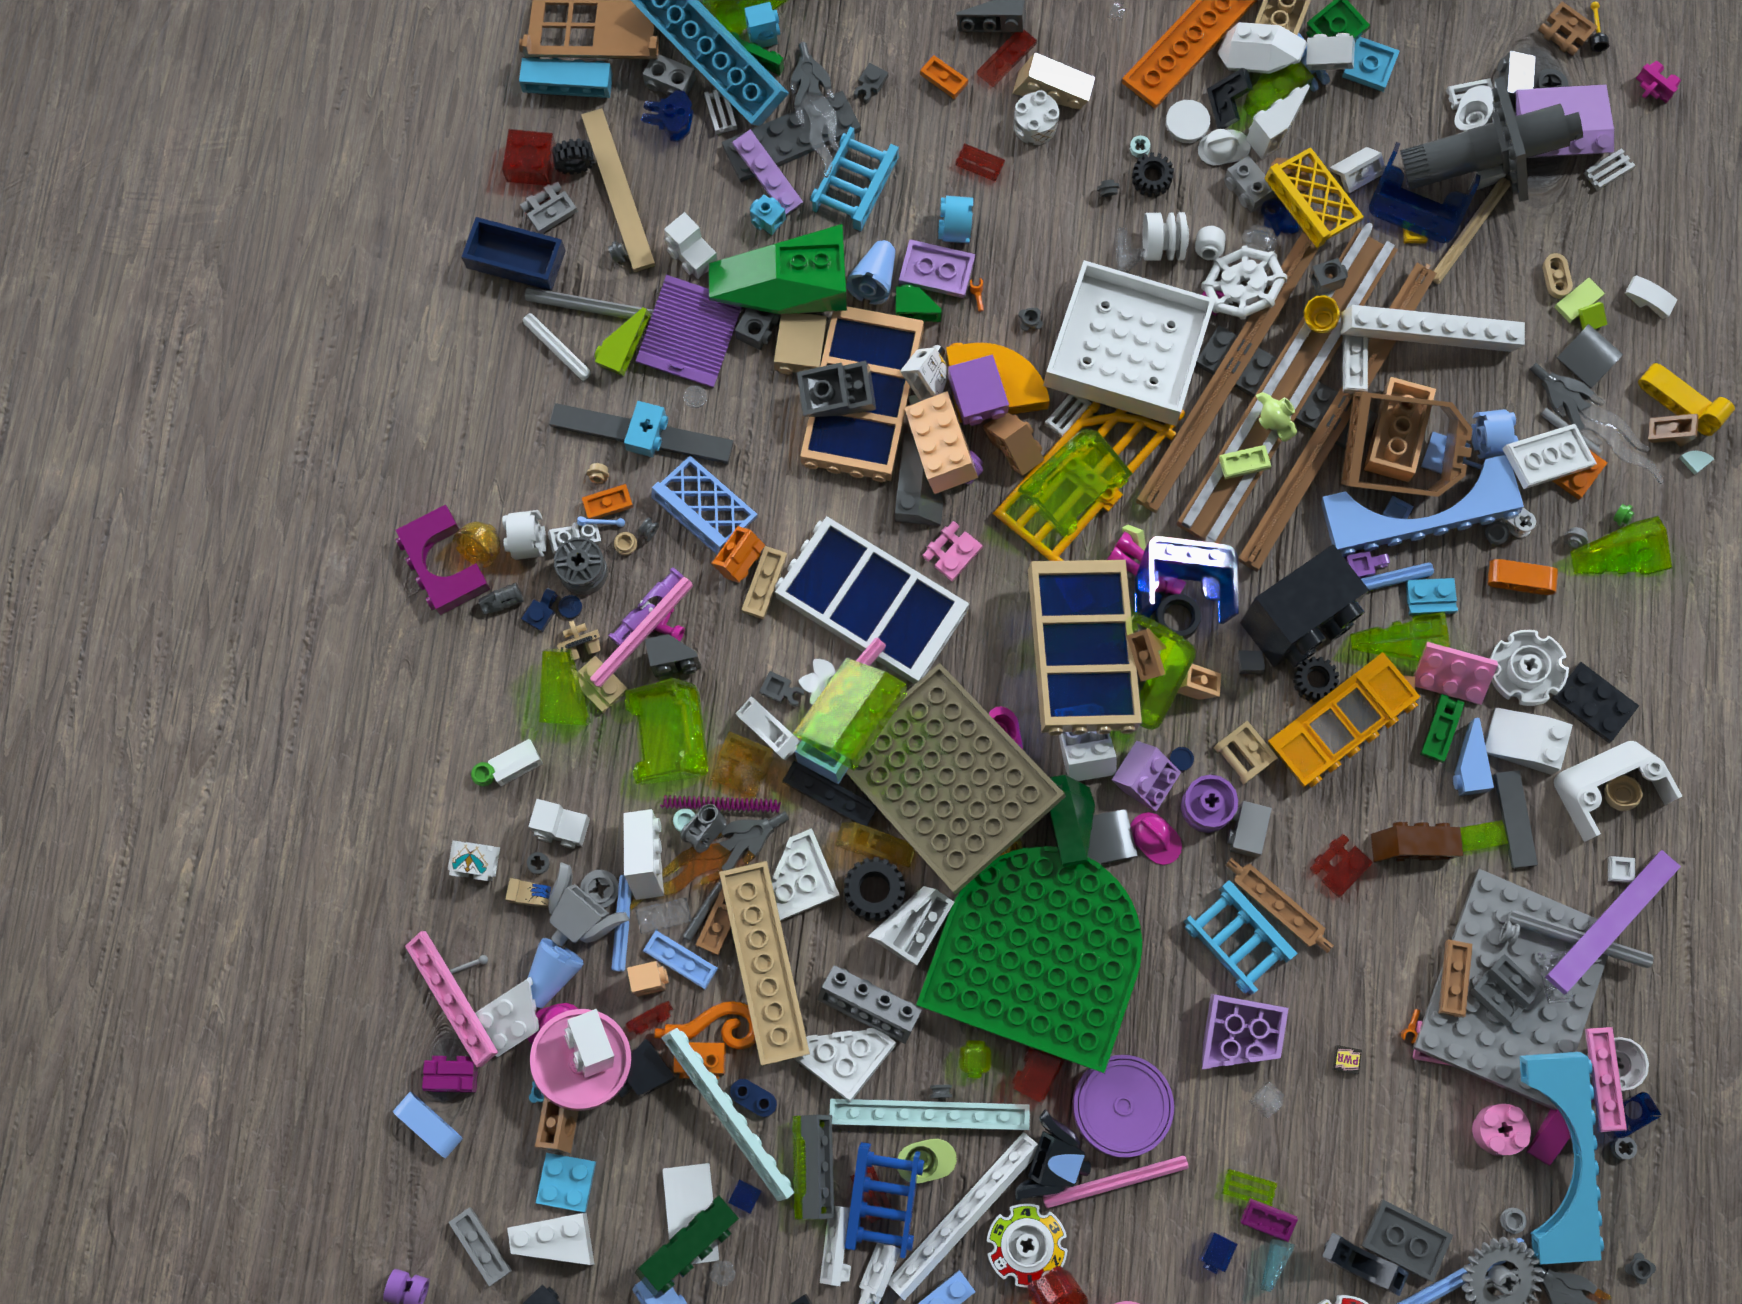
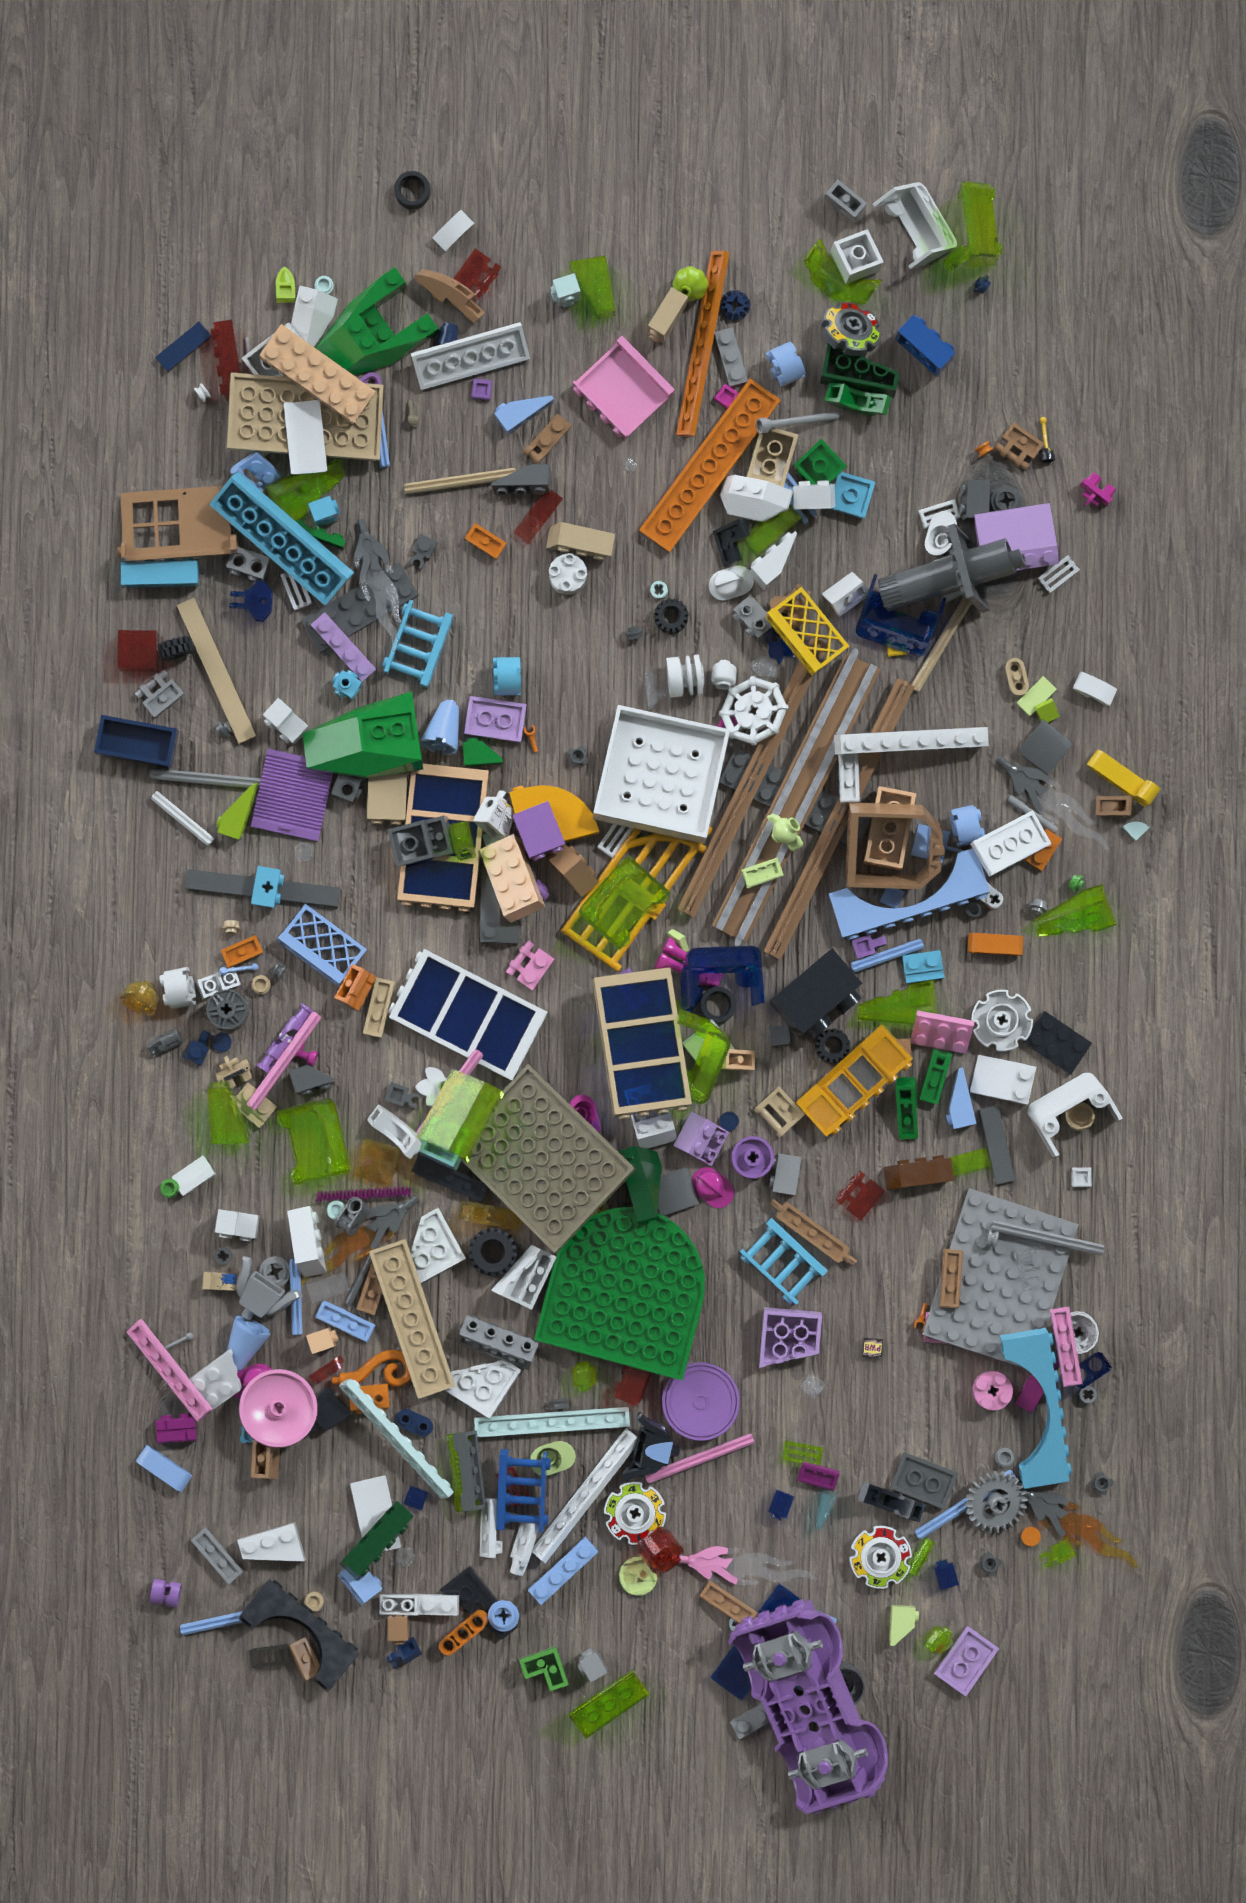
camera: 15 degrees left, 10 degrees up
(417, 540) = (89, 999): magenta arch -> none
(473, 859) = (172, 1259): white brick -> none
(566, 1182) = (276, 1501): medium azure plate -> none
(590, 1043) = (284, 1397): white brick -> none
(886, 387) = (463, 840): none -> clear neon green torso
(910, 13) = (456, 481): none -> tan axle
(987, 160) = (508, 612): clear red tile -> none
(1145, 652) = (690, 1045): medium nougat slope -> none
(1187, 121) = (698, 562): white tile -> none
(1321, 314) = (818, 739): yellow hair -> none
(1324, 284) = (816, 710): dark grey brick -> none
(1406, 762) = (907, 1107): none -> green slope
(1505, 990) = (990, 1284): dark grey slope -> none
(1526, 28) = (984, 449): none -> orange bush
(1612, 922) = (1072, 1222): medium lavender tile -> none

